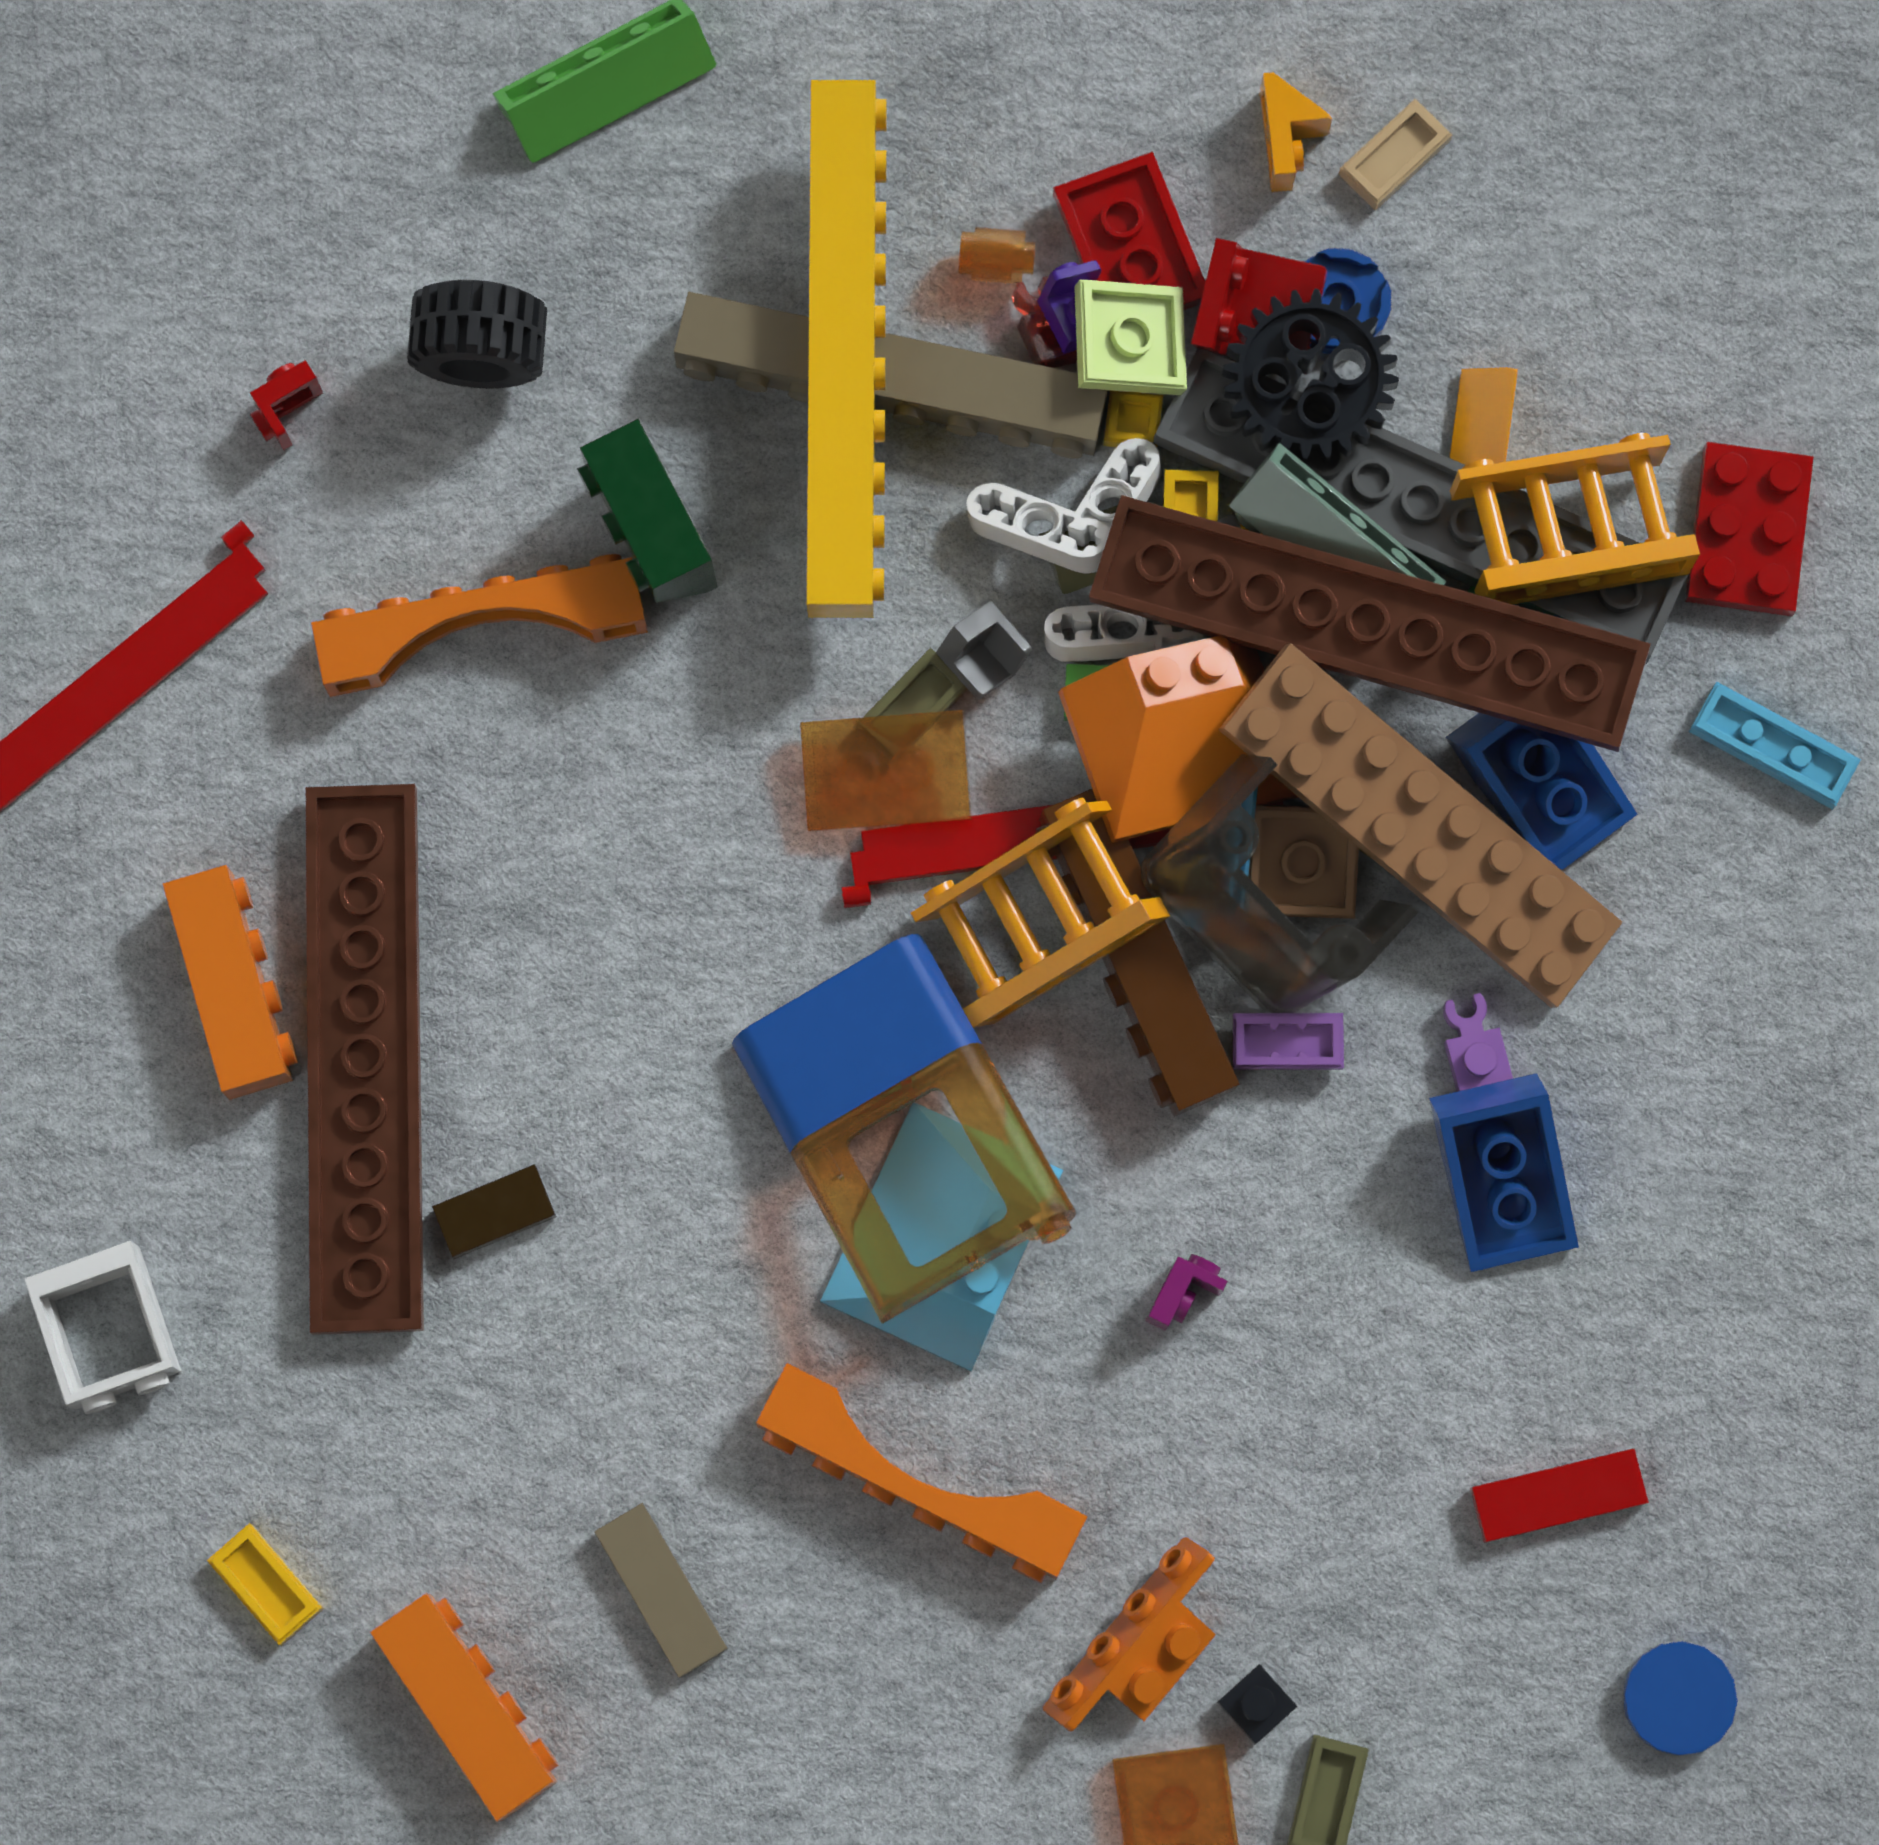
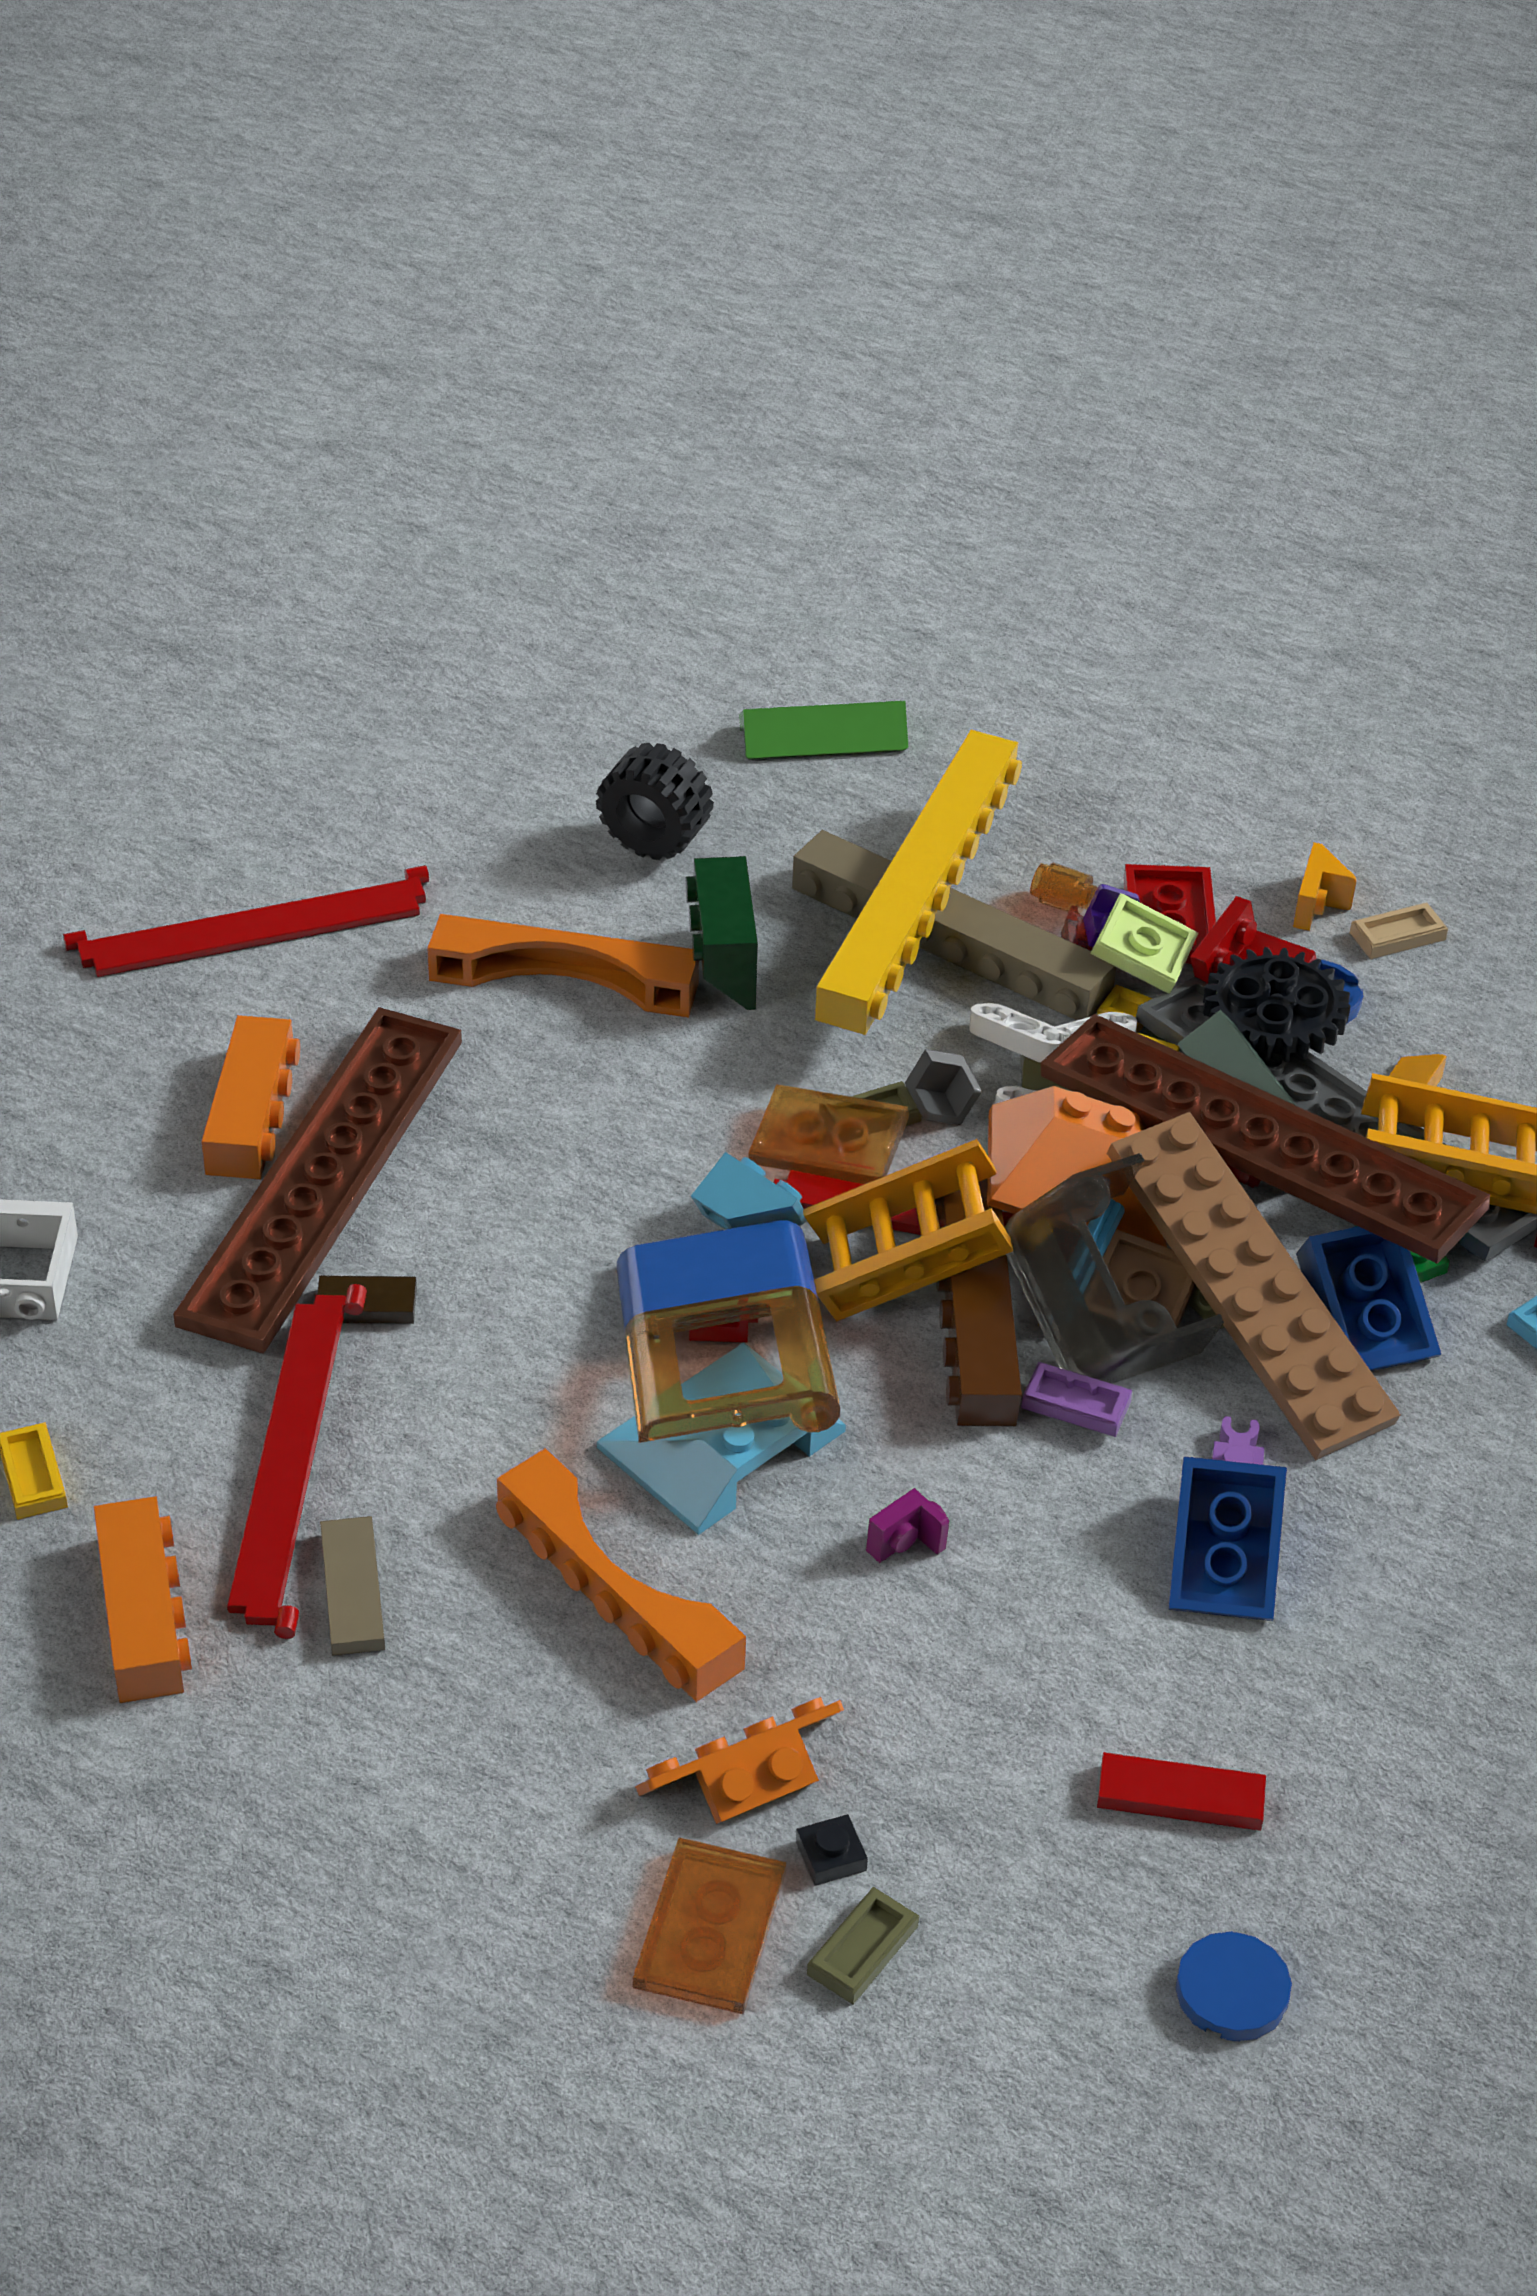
camera: 20 degrees right, 35 degrees down
(283, 393) = (496, 810): red bracket -> none
(520, 1458) = (287, 1462): none -> red piece
(842, 918) = (741, 1196): none -> medium azure slope

